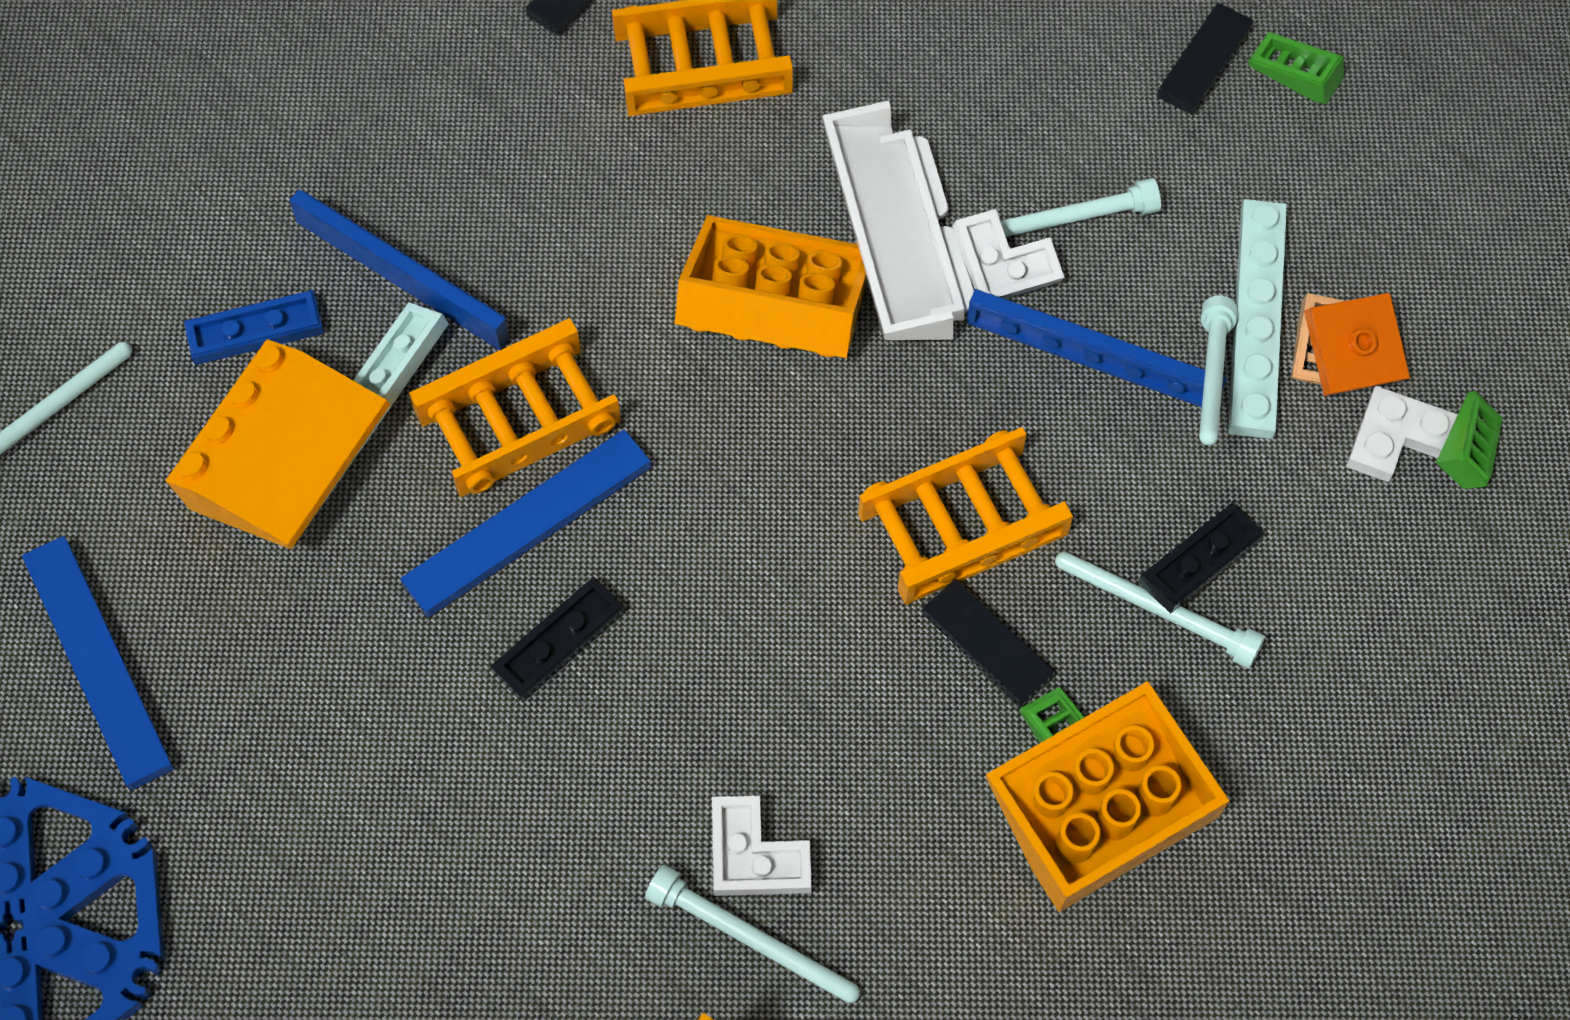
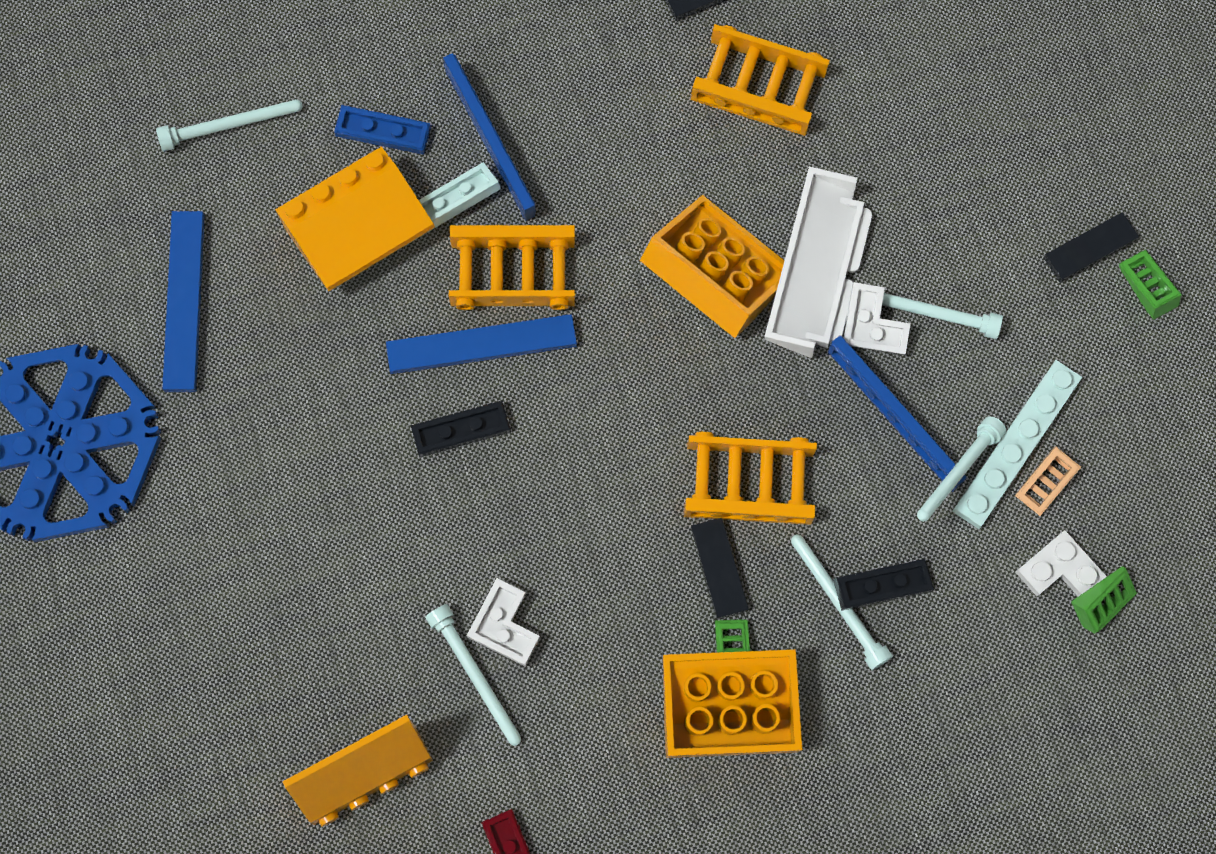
camera: 25 degrees right, 10 degrees up
(1356, 344) = (1068, 497): orange plate -> none

